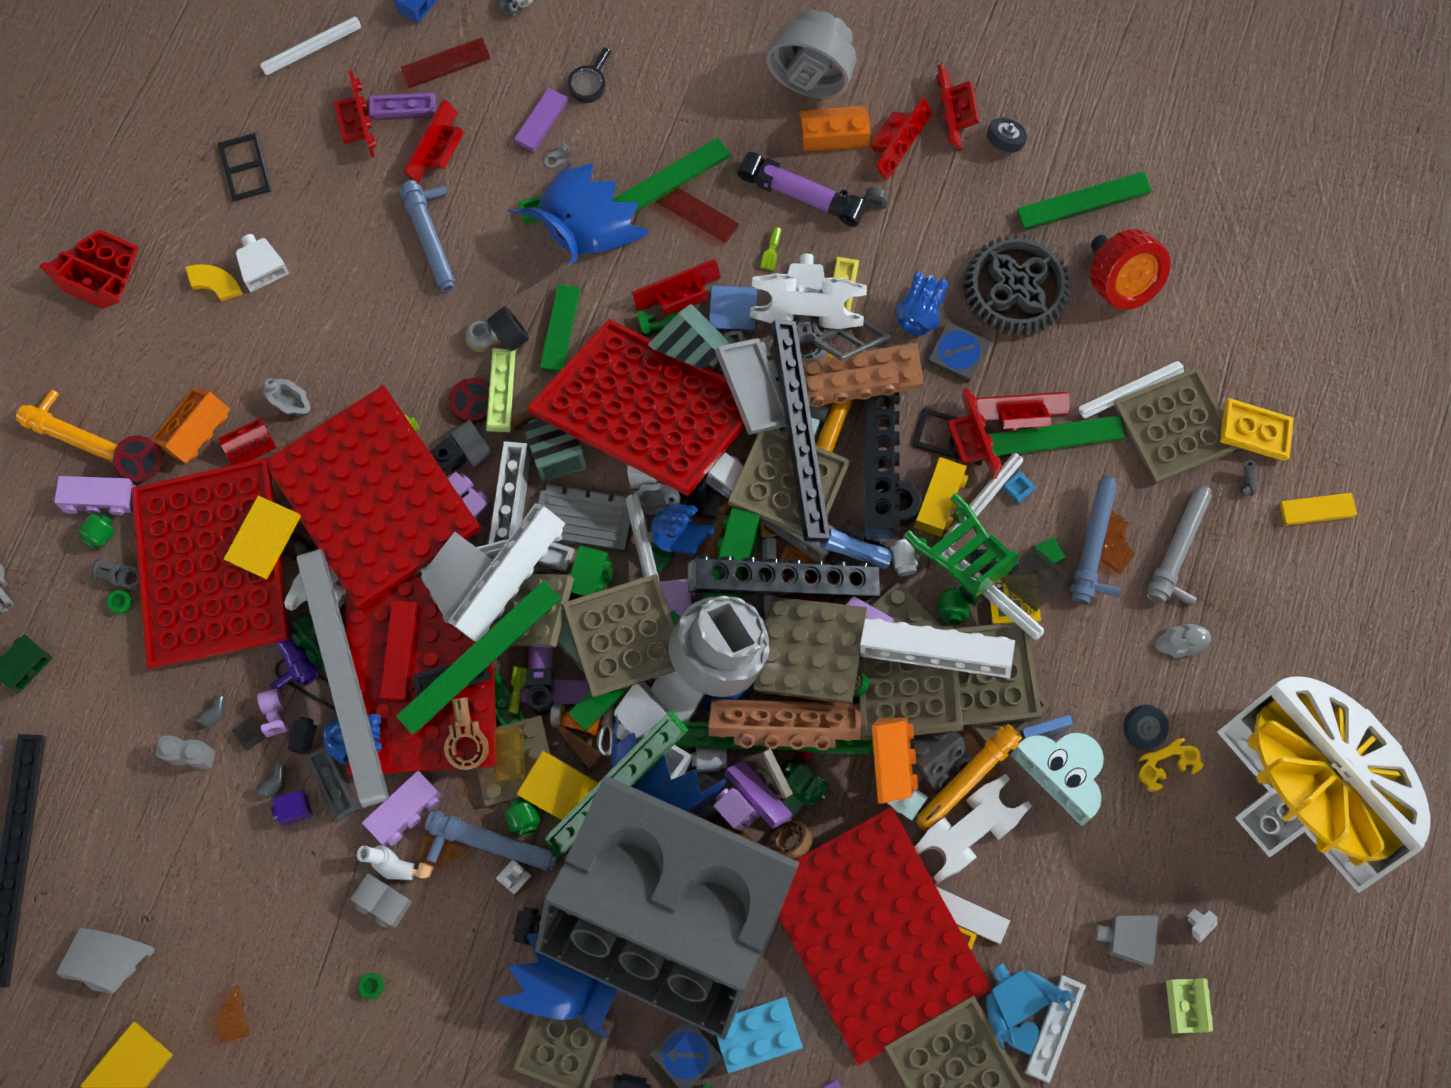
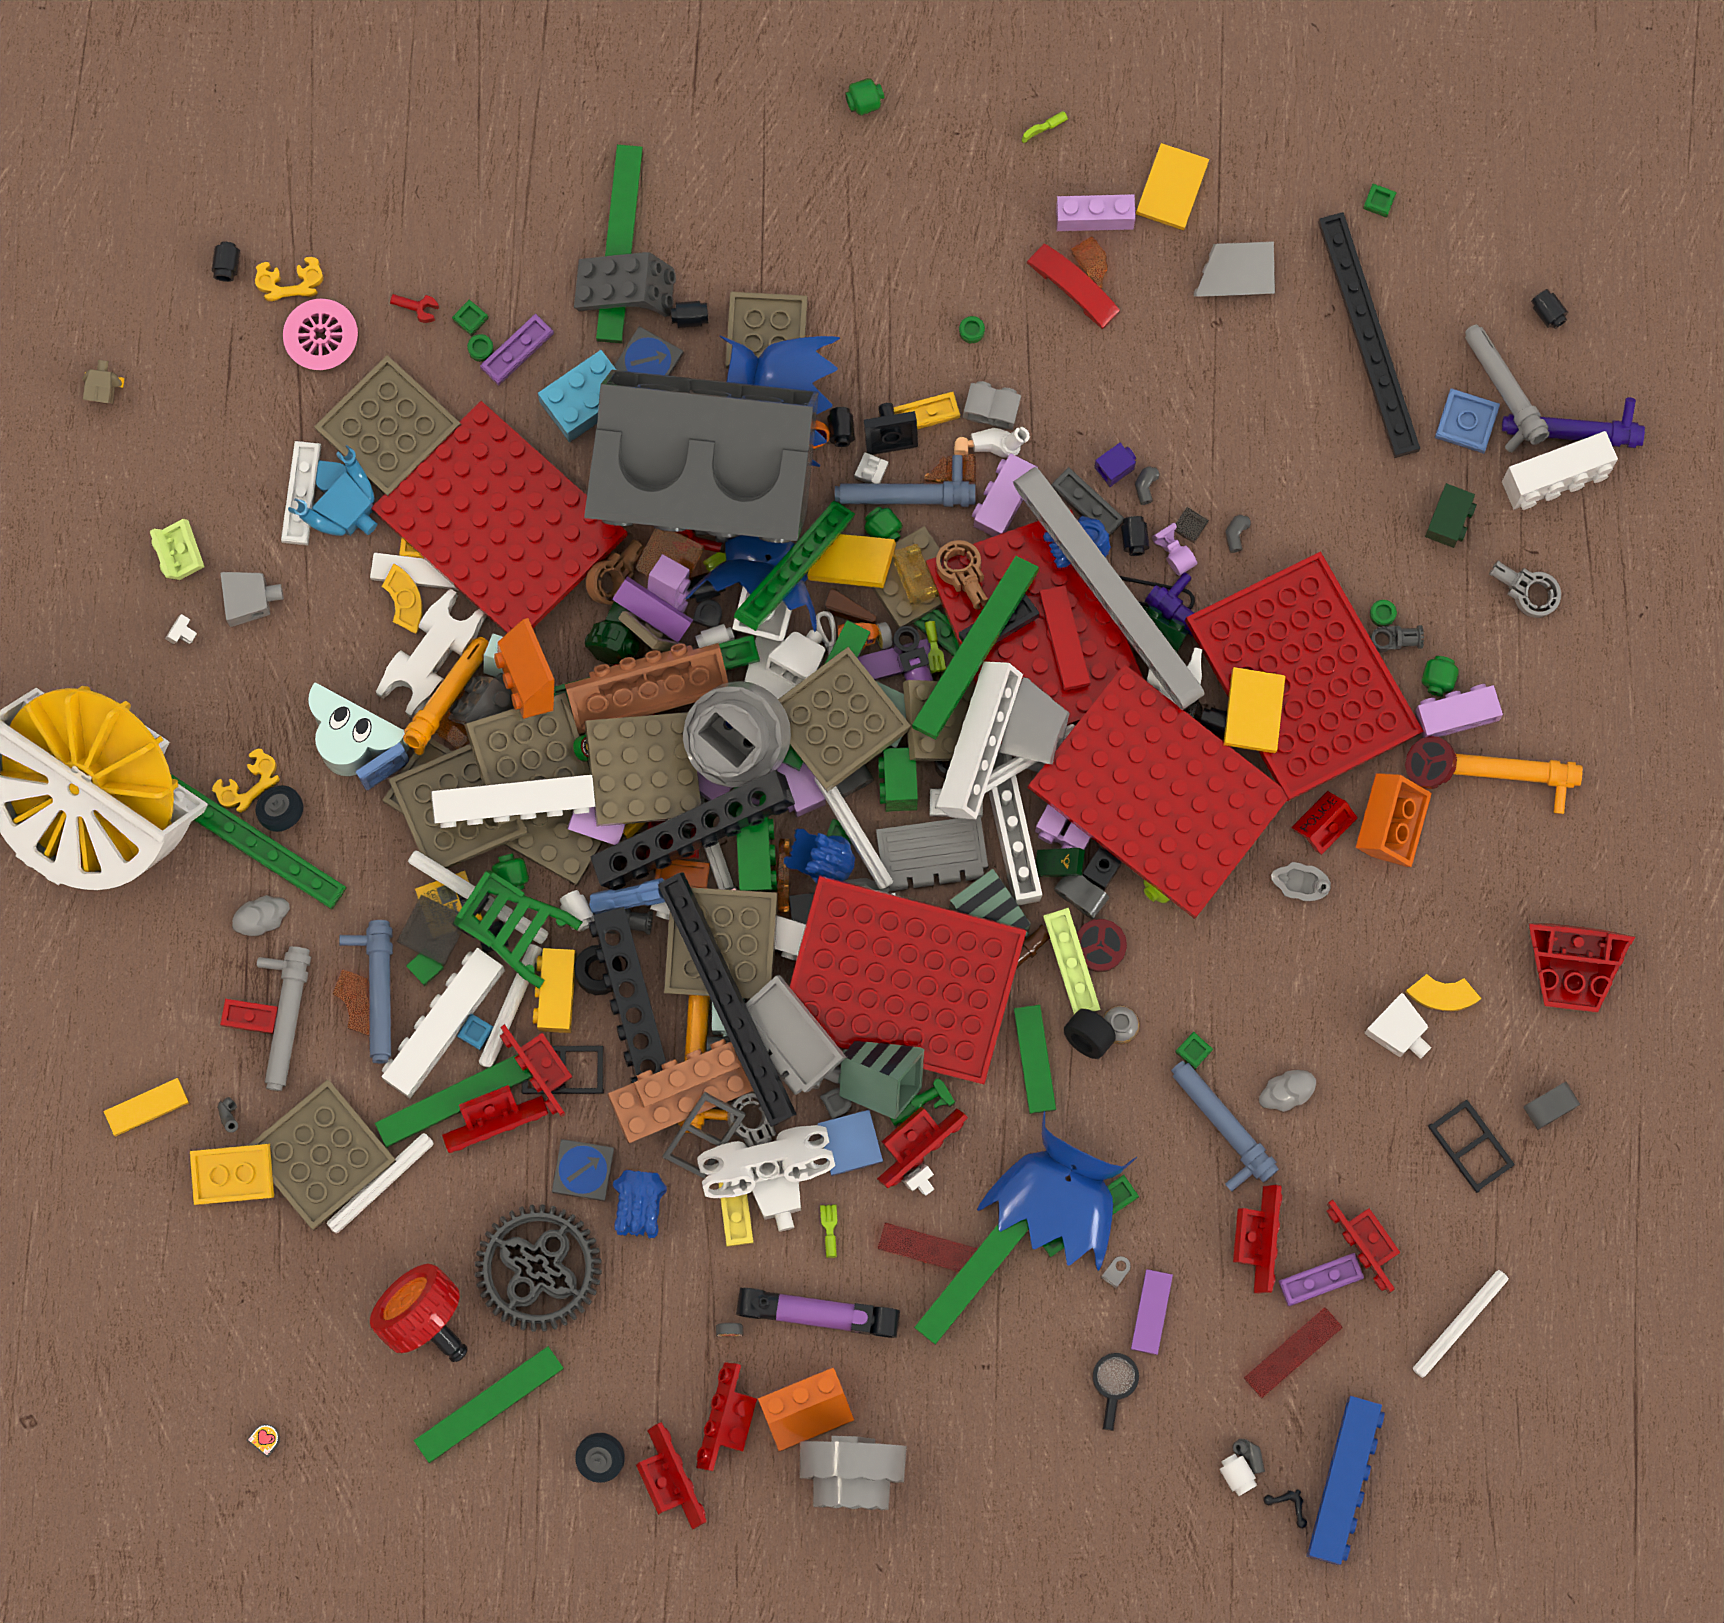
camera: 160 degrees right, 5 degrees up
(168, 172) = (1551, 1105): none -> dark grey axle
(181, 752) = (1237, 482): light grey brick -> none
(208, 1063) = (1095, 212): none -> lavender brick
(259, 1000) = (1075, 284): none -> red slope
(368, 245) = (1288, 1090): none -> light grey arm
(429, 298) = (1194, 1050): none -> green tile
(450, 917) = (932, 410): none -> yellow tile
(478, 470) = (1060, 862): none -> dark green tile
(482, 901) = (890, 431): none -> black tile
(686, 259) = (918, 1179): none -> white tile
(981, 889) = (406, 598): none -> yellow tile
(1047, 497) = (443, 1022): none -> white brick
(1178, 710) = (267, 851): none -> green tile
(1213, 555) = (249, 1016): none -> red plate
(1271, 226) = (265, 1439): none -> tile

